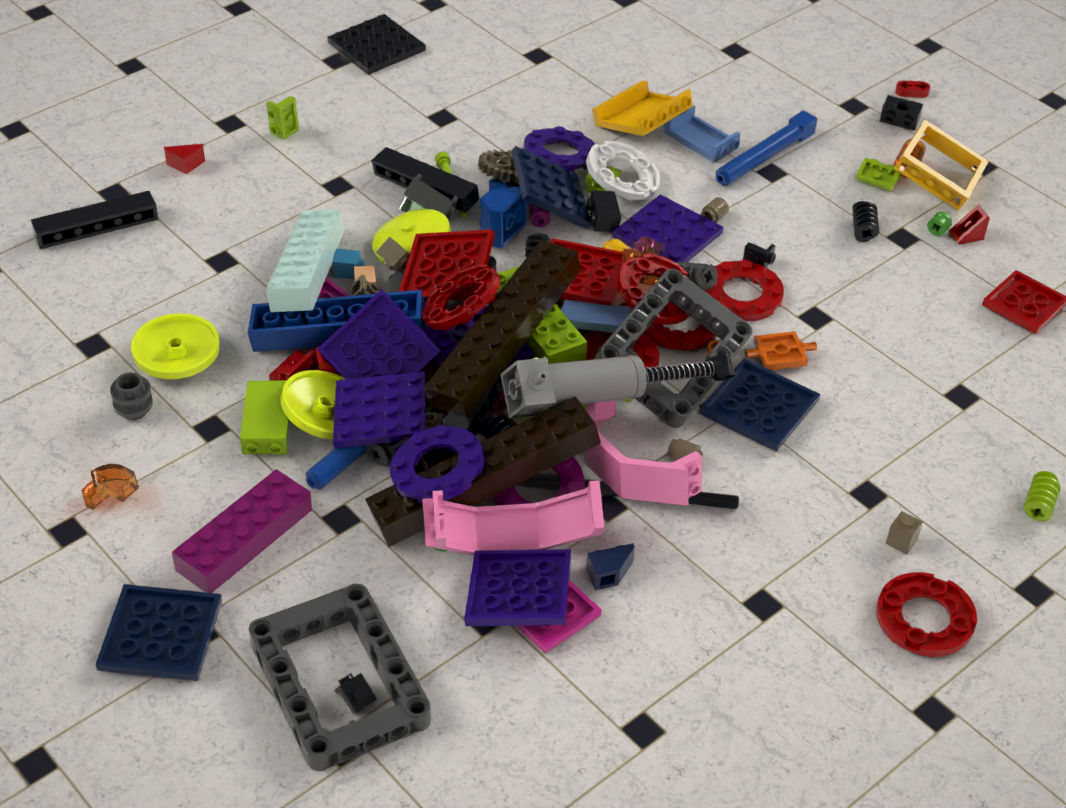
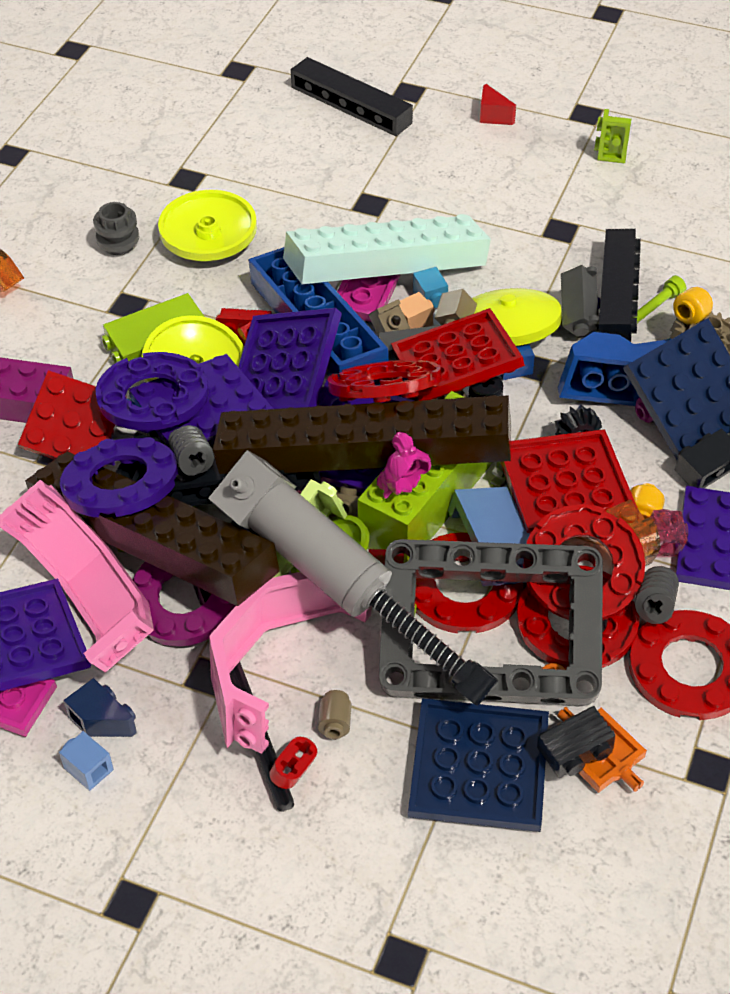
camera: 65 degrees right, 5 degrees up
(332, 487) = (65, 418): none -> red plate
(356, 445) = (122, 375): none -> dark purple plate
(442, 414) = (191, 450): none -> dark grey piece
(486, 152) = (693, 305): none -> yellow head
(556, 315) = (403, 467): none -> dark pink hair
(646, 585) = (86, 760): none -> medium blue brick
(714, 484) = (289, 758): none -> red beam
(780, 350) = (576, 742): none -> black brick

